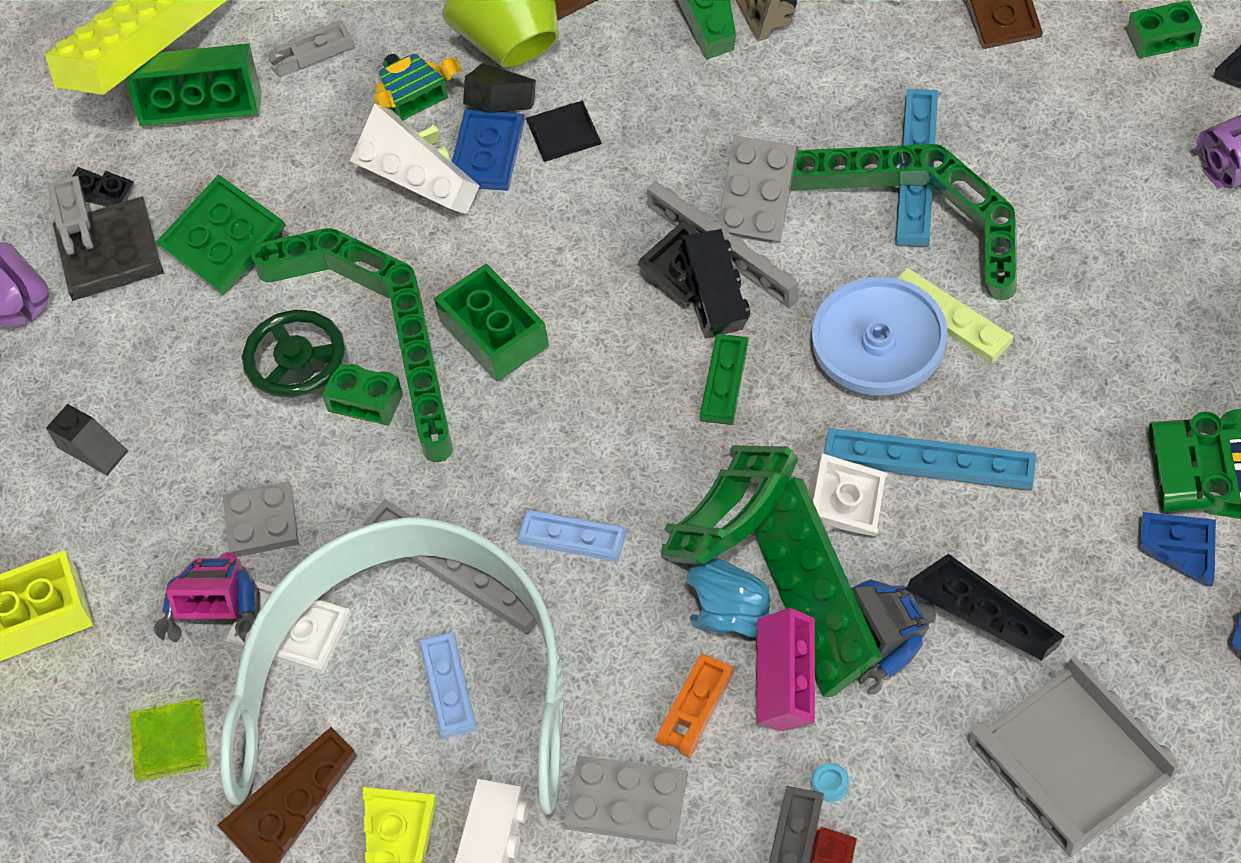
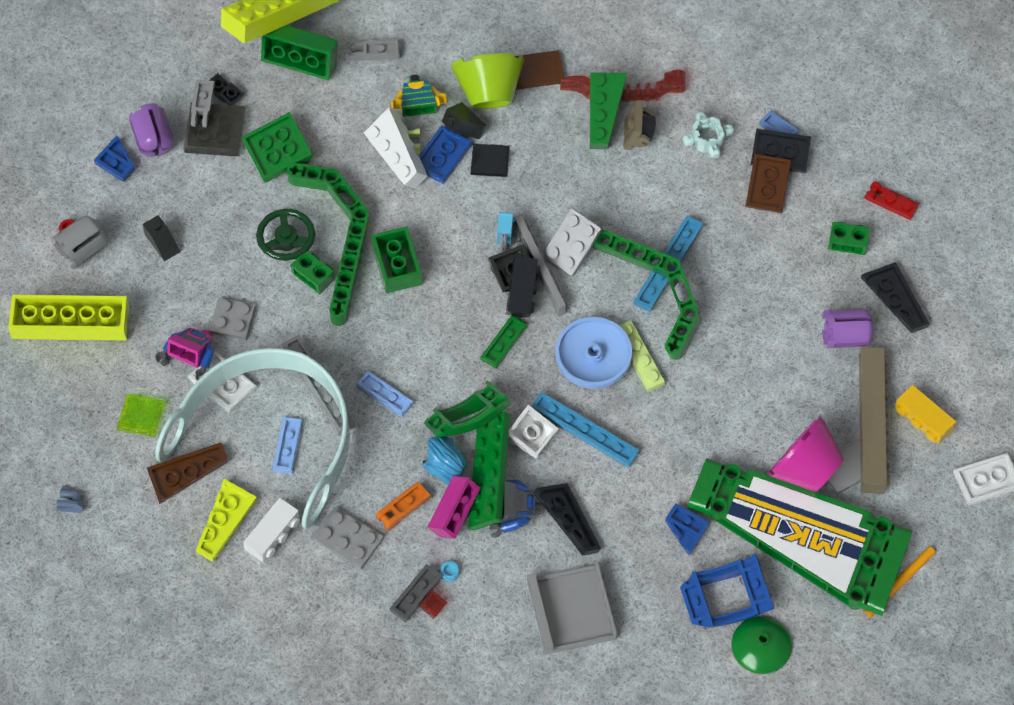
camera: 15 degrees right, 5 degrees up
(641, 212) = (505, 230): none -> medium azure piece

